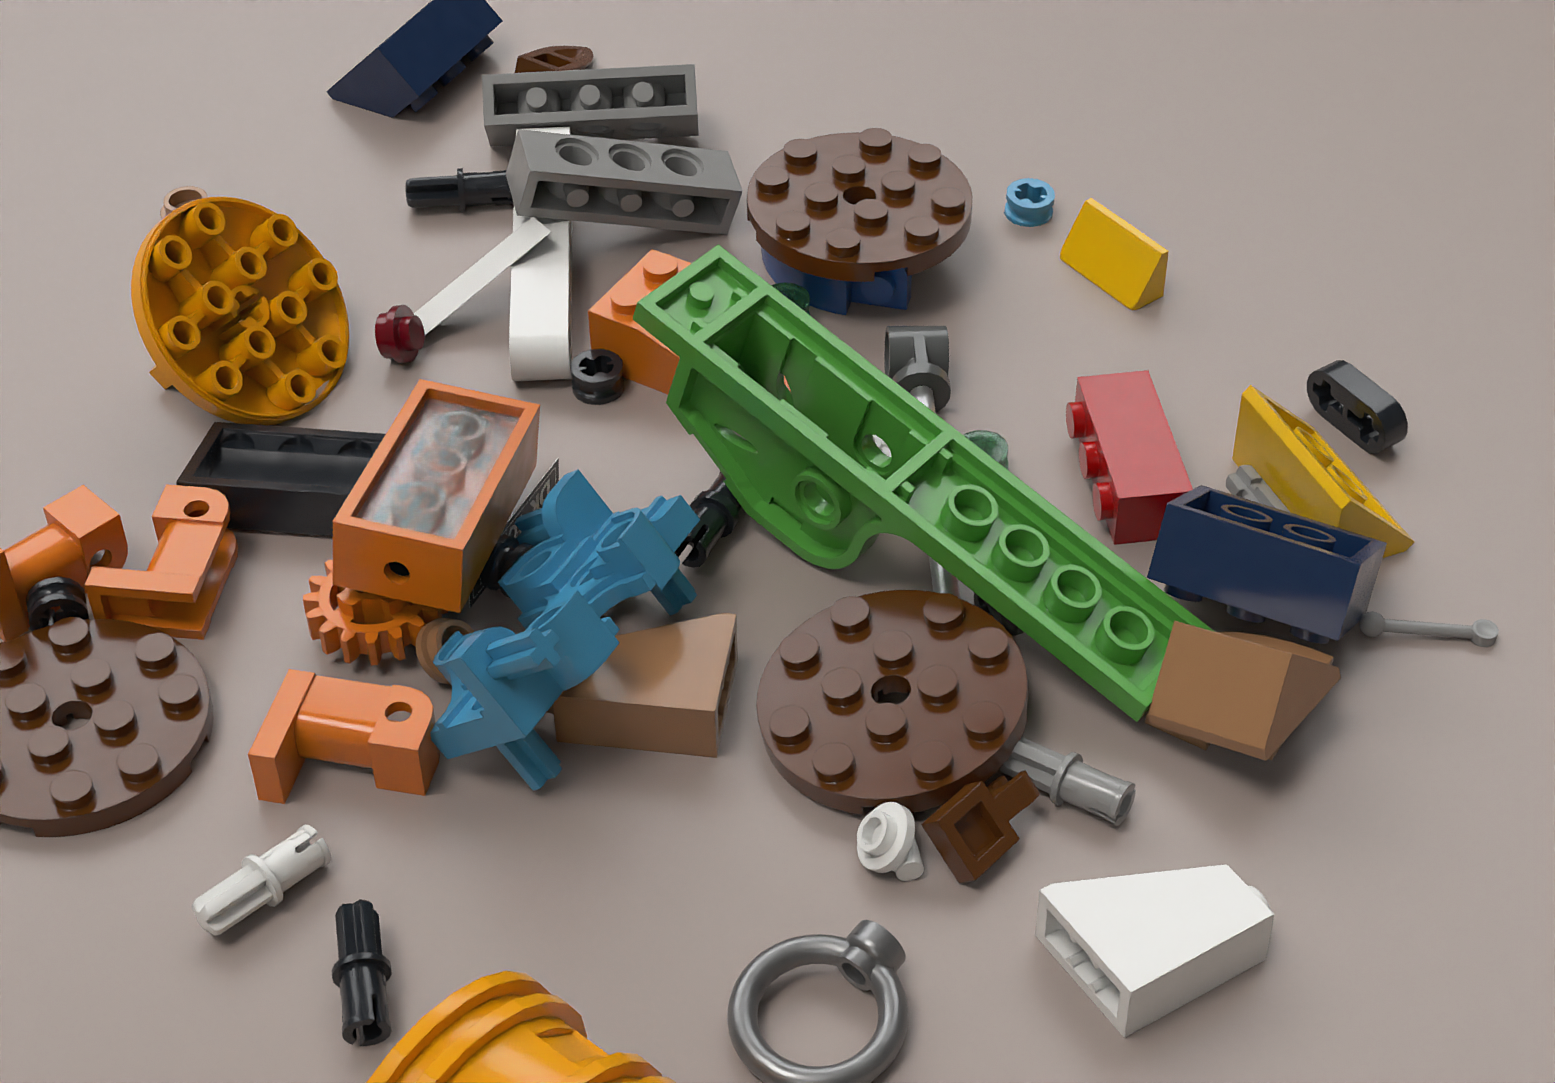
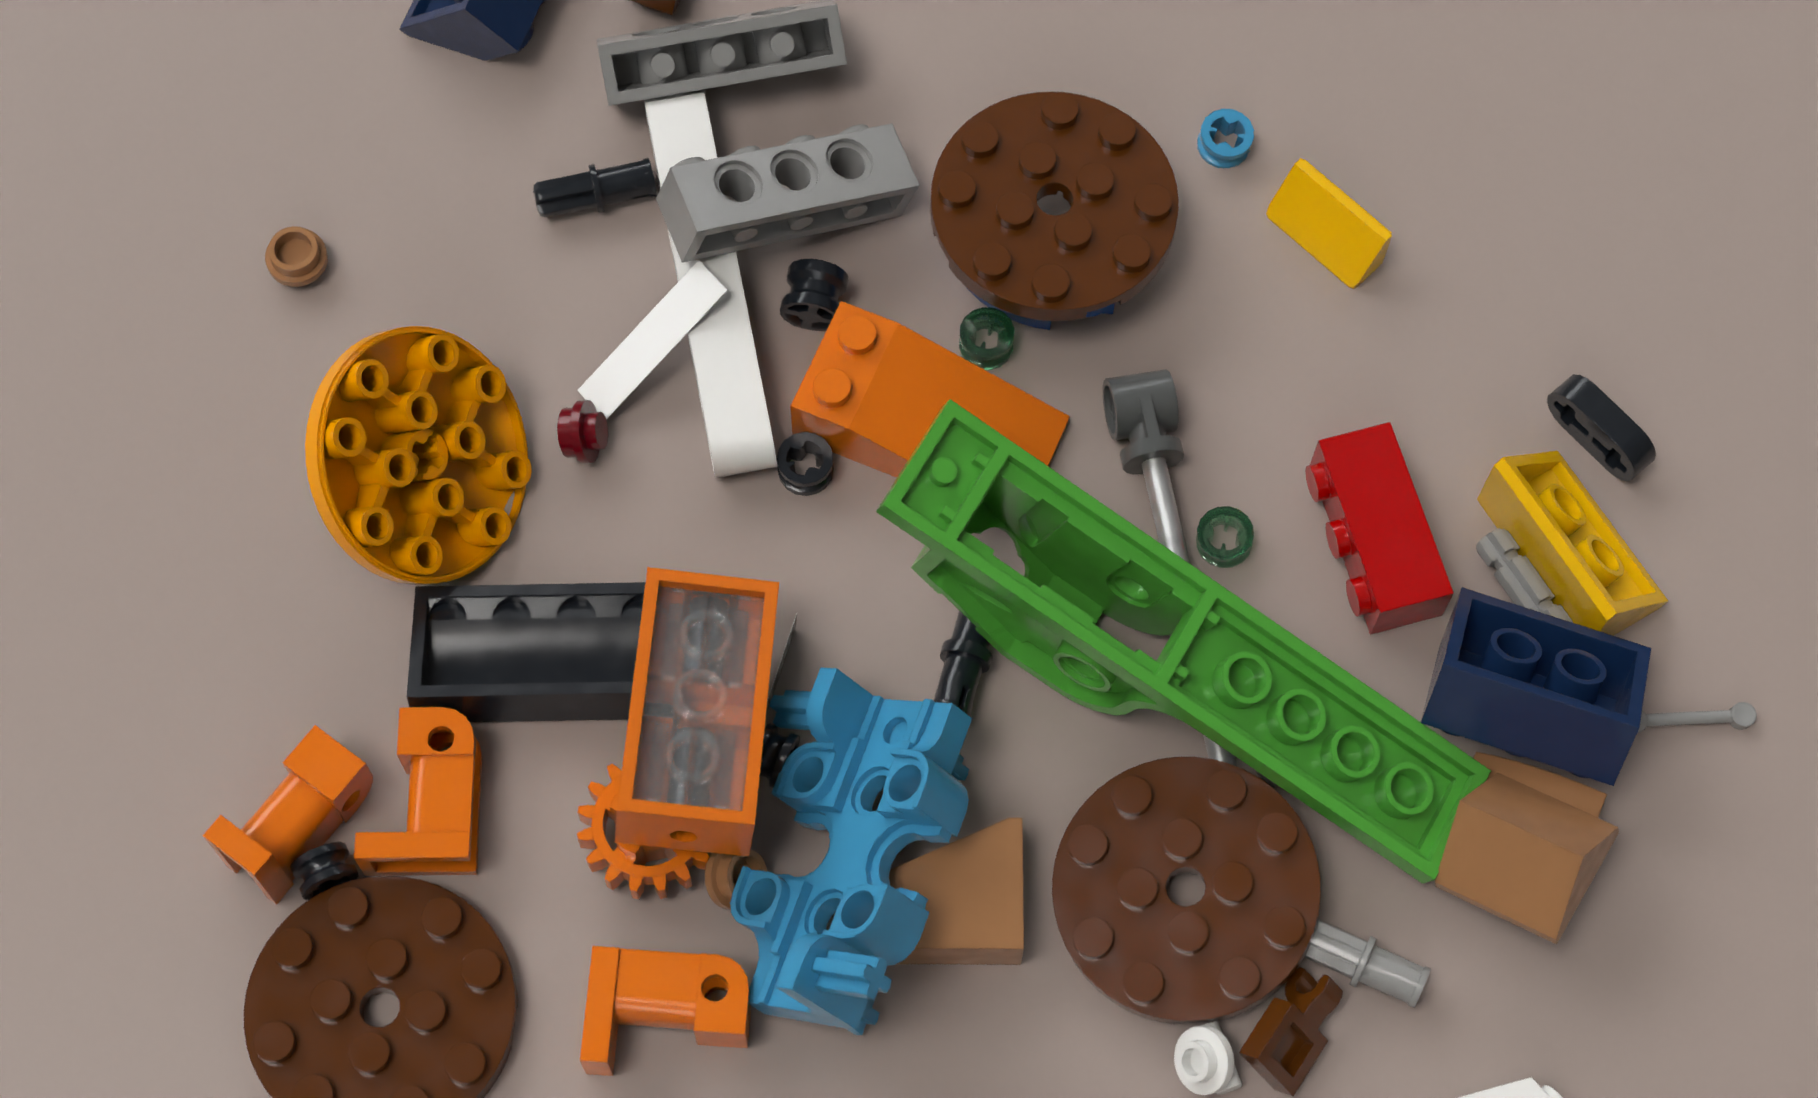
camera: 10 degrees left, 25 degrees up
(626, 252) = (813, 293): none -> black wheel

